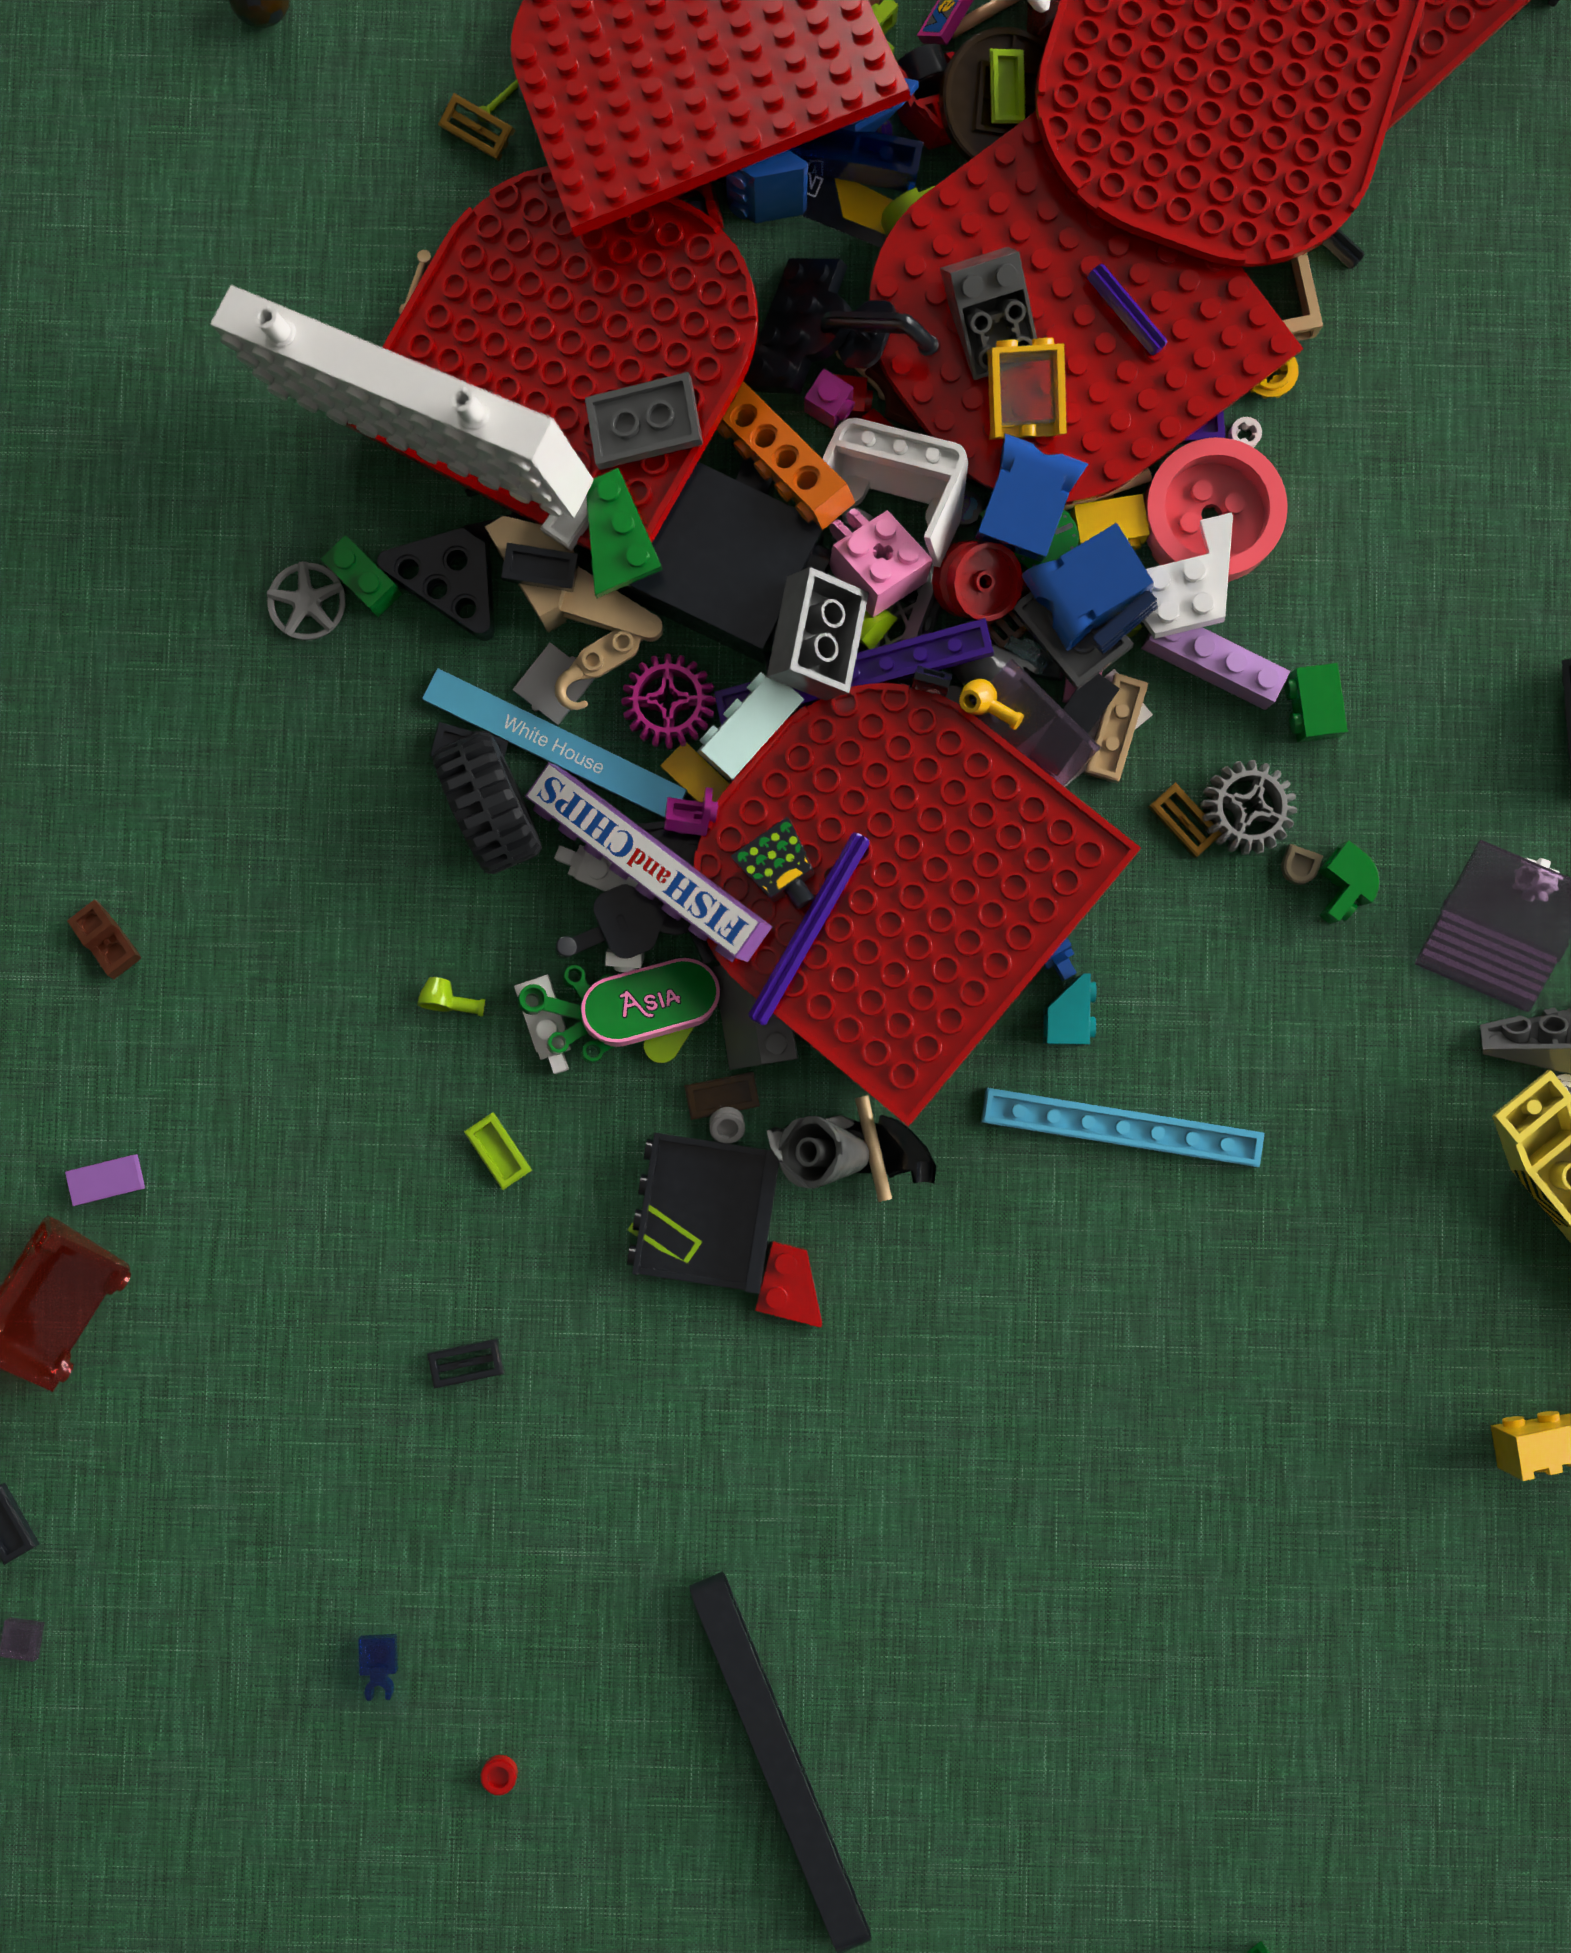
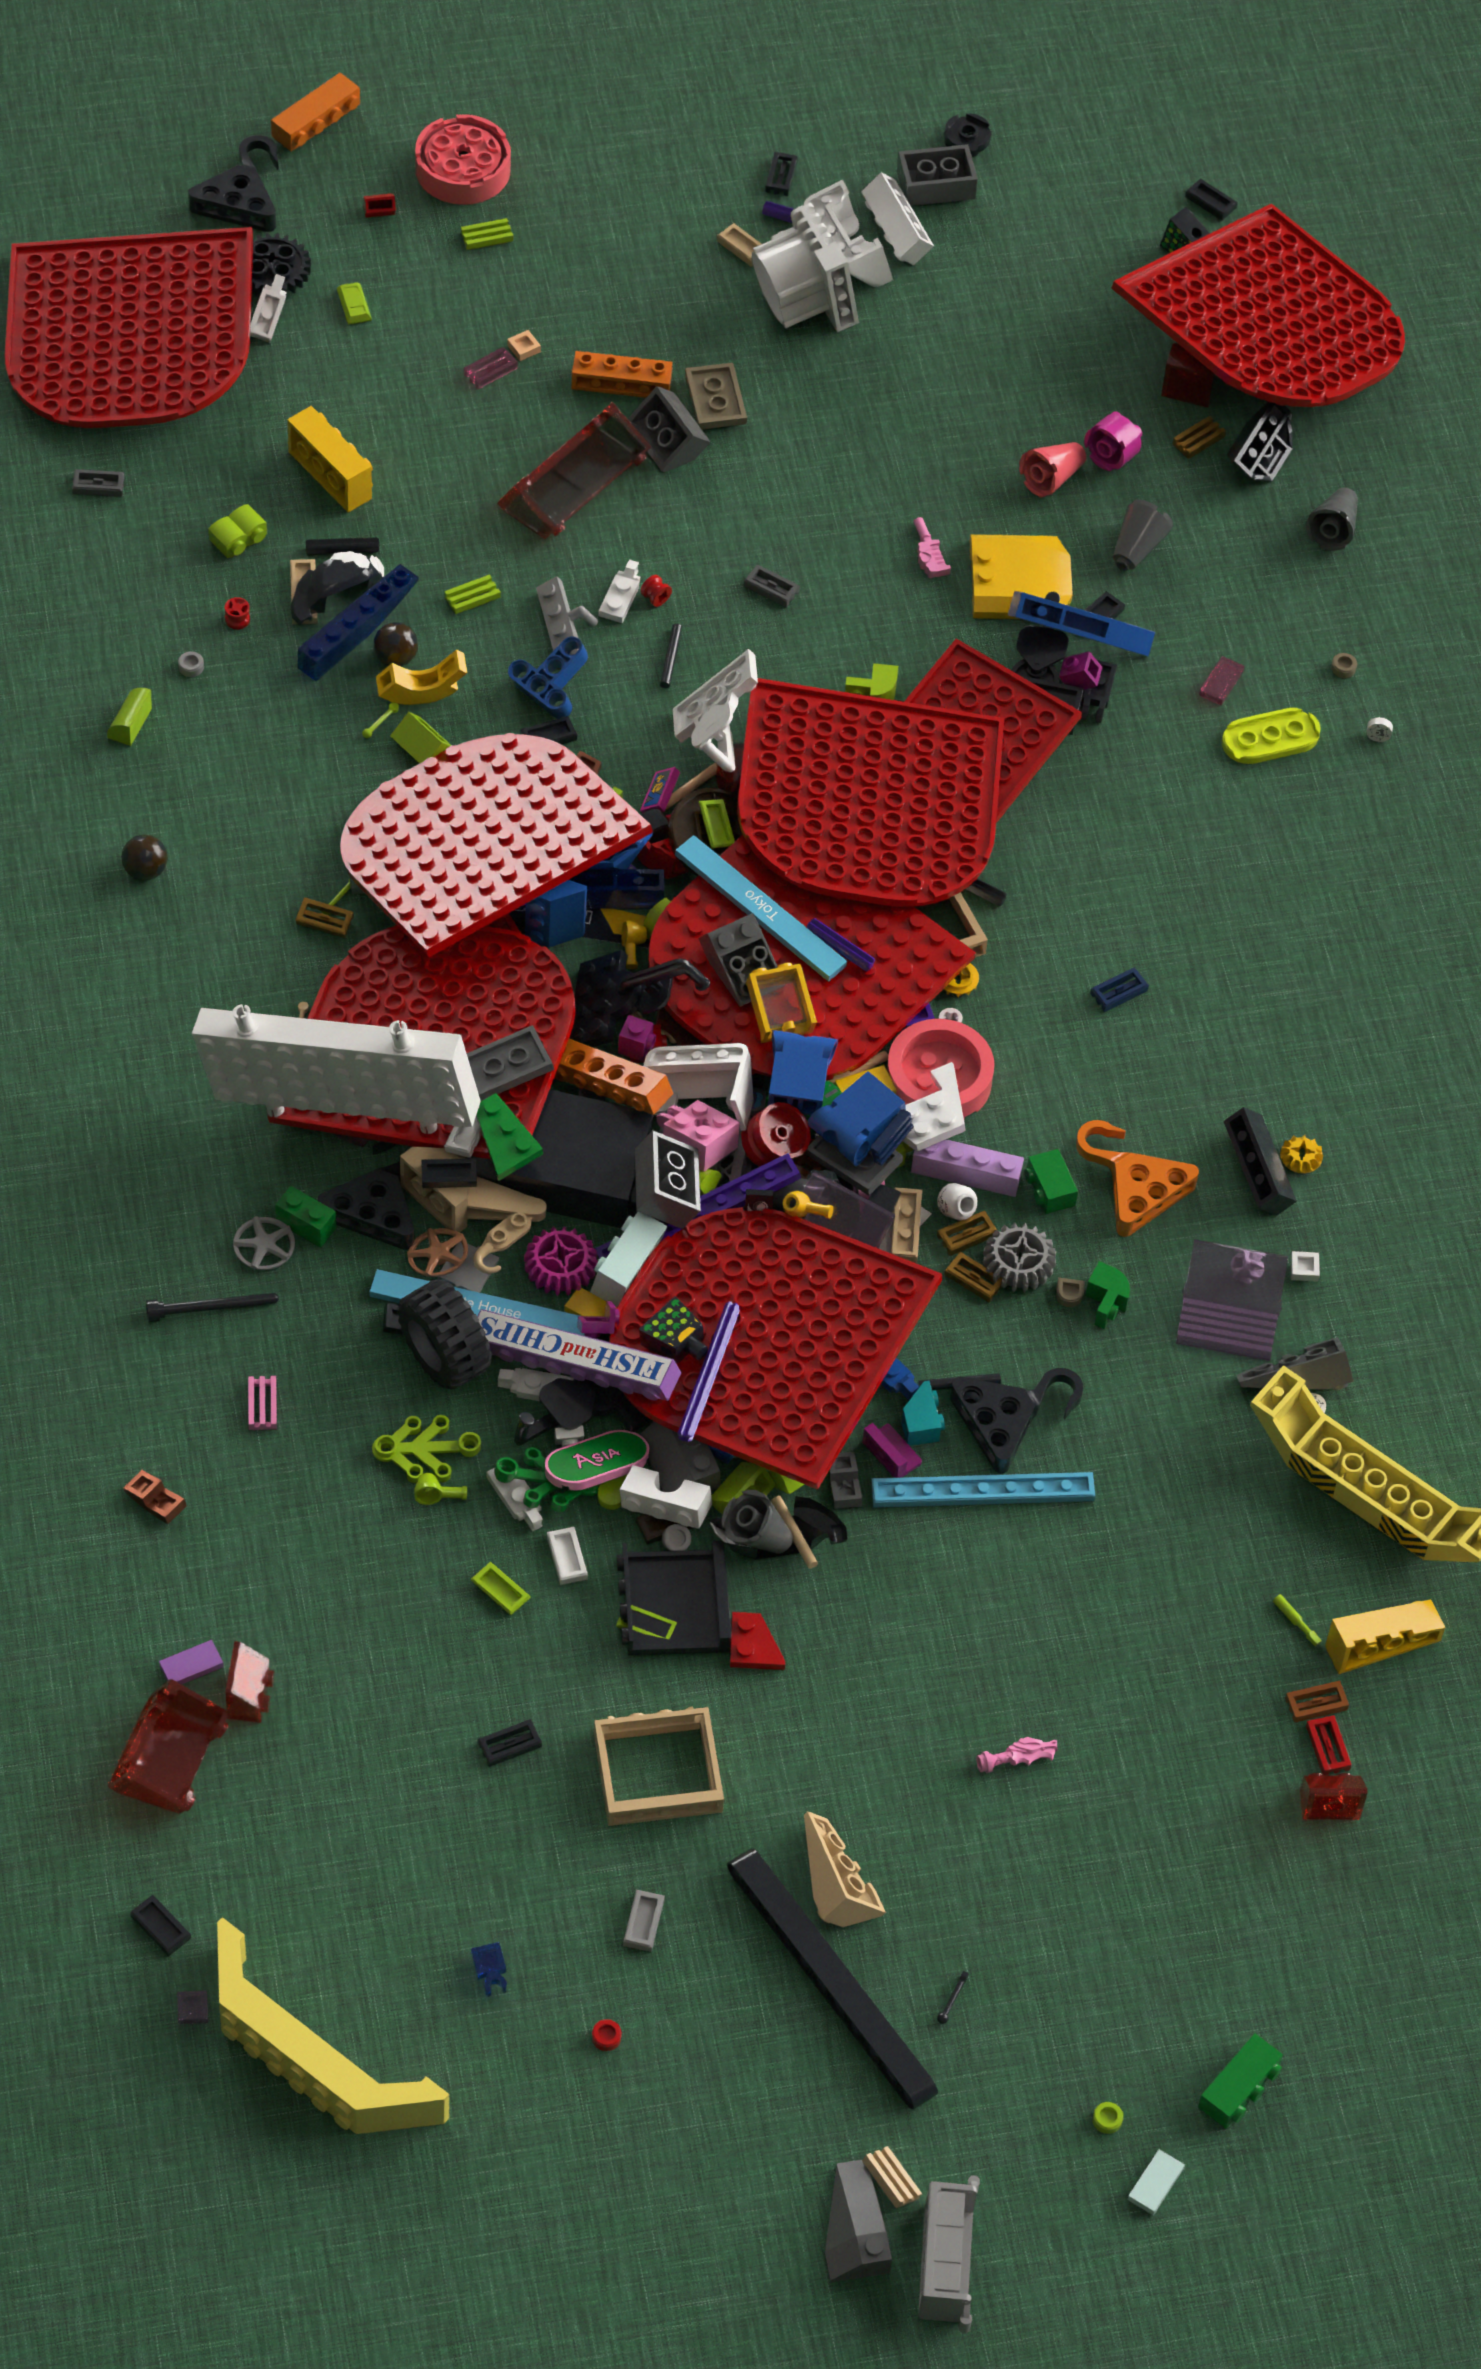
camera: 15 degrees left, 30 degrees down
(126, 1750) = (311, 2062): none -> light yellow slope
(154, 675) = (158, 1310): none -> black piece
(158, 1234) = (248, 1684): none -> clear red slope
(247, 827) = (262, 1383): none -> bright pink tile
(442, 933) = (422, 1447): none -> lime plant
(518, 657) = (437, 1252): none -> nougat wheel
(575, 1633) = (643, 1920): none -> light grey tile
(589, 1119) = (567, 1555): none -> white tile
(623, 1494) = (663, 1806): none -> tan window
(745, 1094) = (684, 1506): none -> white arch
(815, 1082) = (745, 1477): none -> lime brick
(817, 1641) = (835, 1879): none -> tan wedge
(865, 229) = (632, 935): none -> yellow bar
(902, 1834) = (943, 2017): none -> black hinge
(954, 1096) = (844, 1481): none -> dark grey slope
(1023, 1050) = (890, 1450): none -> magenta panel
(1034, 232) = (766, 911): none -> medium azure tile
(1083, 1503) = (1024, 1751): none -> bright pink piece
(1129, 968) = (946, 1383): none -> black bar
(1163, 761) = (970, 1236): none -> pearl gold tile
(1189, 713) = (957, 1201): none -> white head
(1202, 1025) = (995, 1399): none -> black piece
(1408, 736) = (1154, 1175): none -> orange piece
(1446, 1568) = (1334, 1765): none -> red tile
(1448, 436) = (1122, 992): none -> dark blue tile
(1449, 1650) = (1332, 1797): none -> clear red slope
(1462, 1518) = (1295, 1709): none -> dark orange tile
(1465, 1385) = (1296, 1619): none -> lime piece

